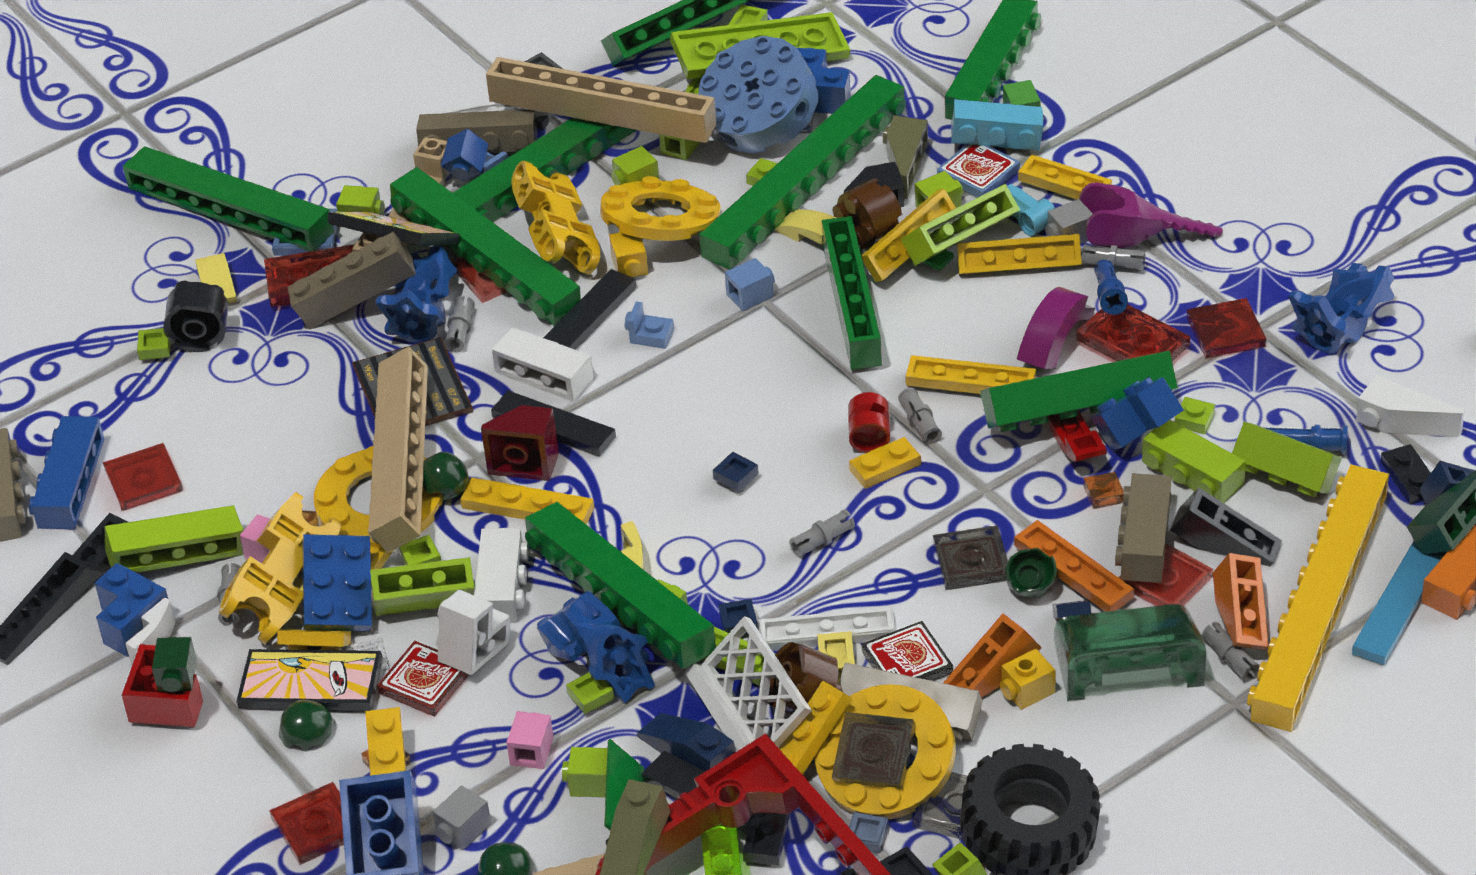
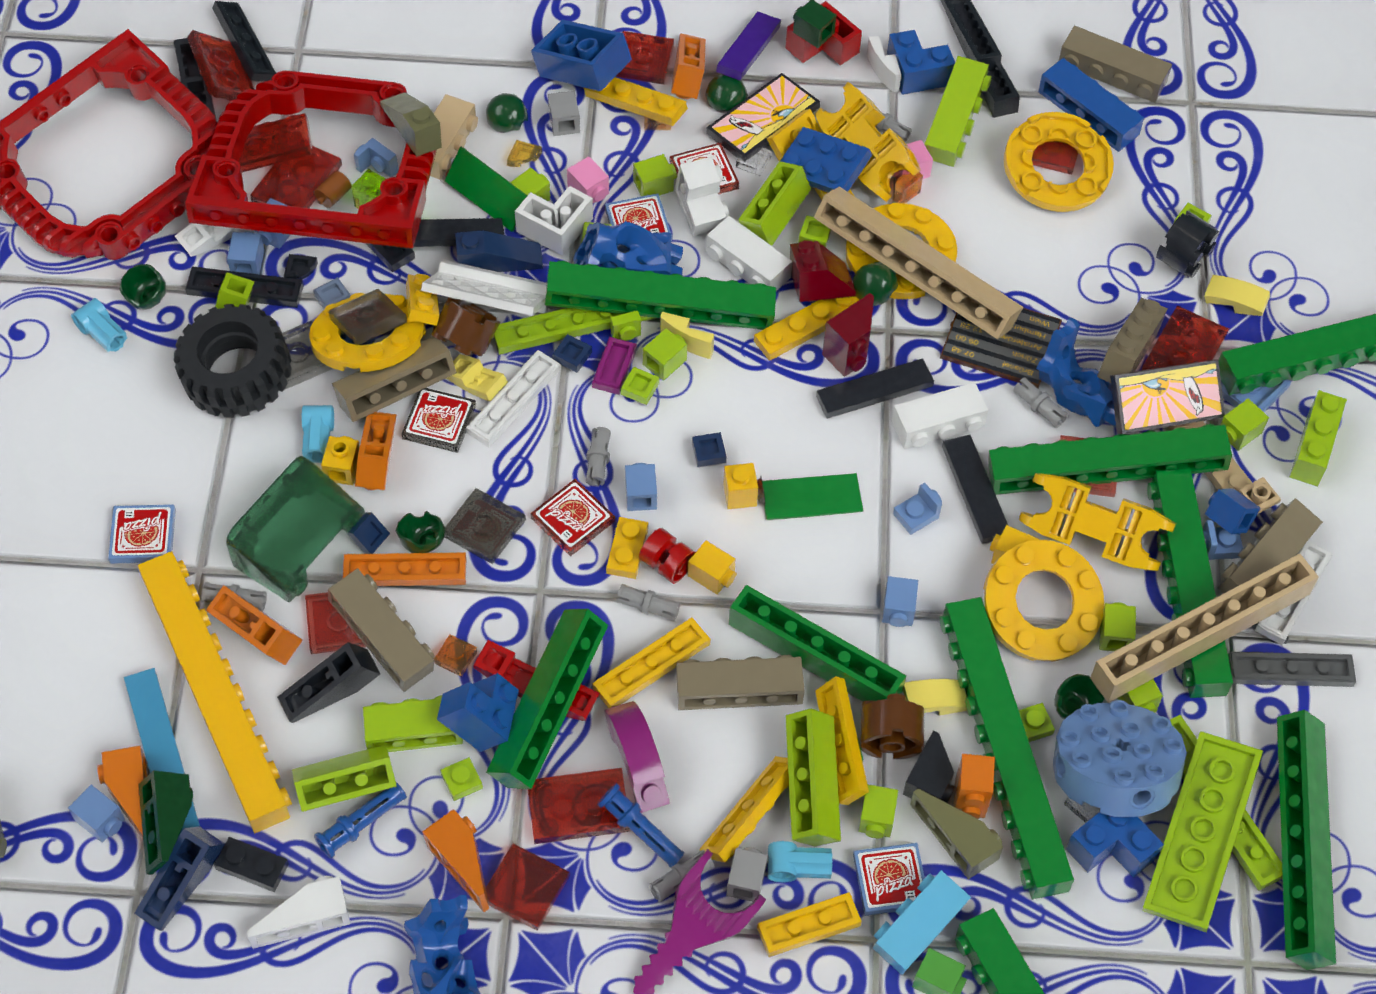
camera: 125 degrees right, 15 degrees up
(132, 432) = (1067, 129): none -> yellow plate
(228, 736) = (748, 46): none -> dark purple tile
(302, 765) = (688, 66): none -> orange slope
(330, 163) = (1318, 438): none -> lime brick
(473, 698) = (654, 176): none -> lime brick
(476, 506) = (819, 273): none -> dark red slope
(535, 681) = (642, 211): none -> tile
(543, 820) = (523, 153): none -> clear yellow tile
(604, 713) = (554, 224): none -> white brick
(669, 557) = (665, 354): none -> lime brick
(705, 399) = (810, 496): none -> green piece
(718, 589) = (614, 365): none -> magenta tile
(721, 553) = (640, 385): none -> lime plate
(724, 157) = (1075, 693): none -> dark green hair
(751, 425) = (740, 486): none -> yellow brick
(822, 482) = (641, 487): none -> medium blue brick
(841, 390) = (712, 567): none -> yellow brick
(863, 146) = (974, 784): none -> orange brick
(897, 511) = (572, 517): none -> tile
(927, 319) = (739, 683): none -> dark tan brick
(1015, 723) = (316, 424): none -> medium azure piece
(1251, 361) = (455, 847): none -> orange slope
(1256, 760) = (141, 533): none -> tile

